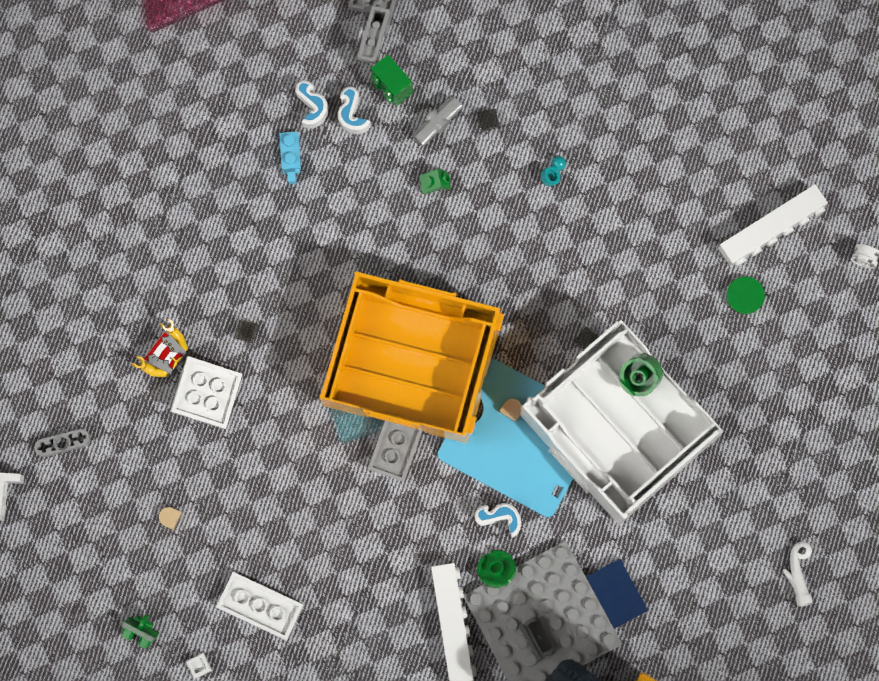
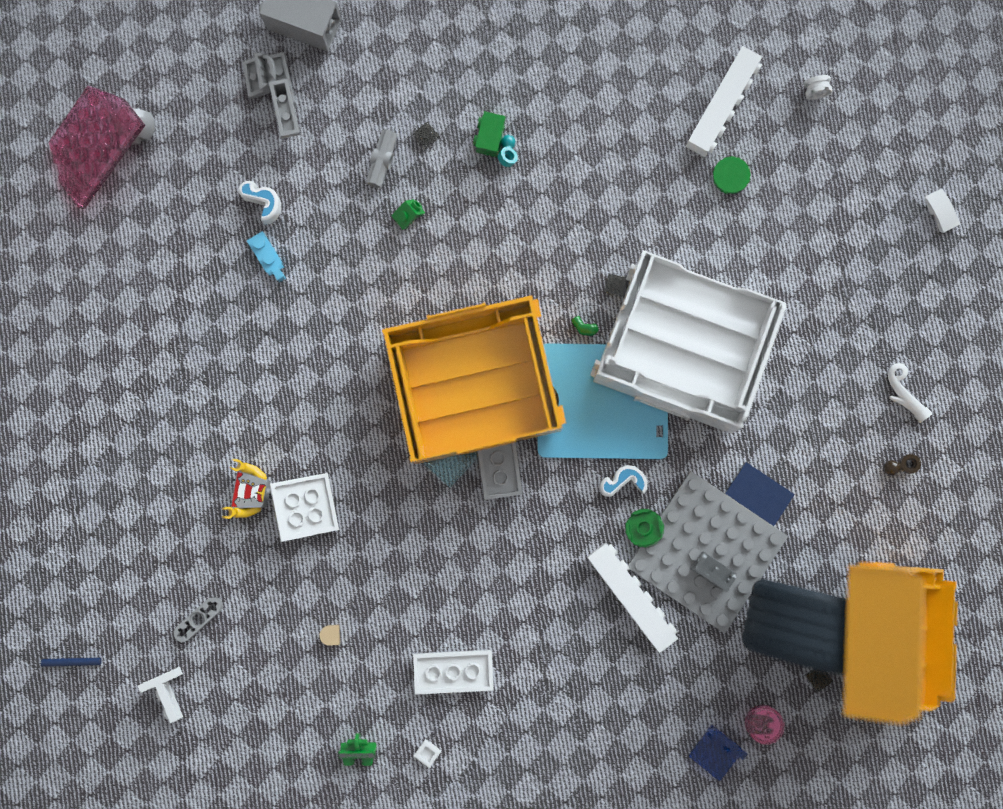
camera: 30 degrees left, 5 degrees up
(246, 331) = (311, 433): clear smoke plate -> none
(346, 112) = (297, 192): white animal -> none
(391, 80) = (322, 142): green brick -> none
(511, 409) = (583, 380): tan tile -> none
(538, 365) = (584, 329): none -> green arm
(545, 148) = (490, 134): none -> green brick
(648, 367) = (693, 299): green brick -> none
(750, 633) = (892, 467): none -> dark brown plate

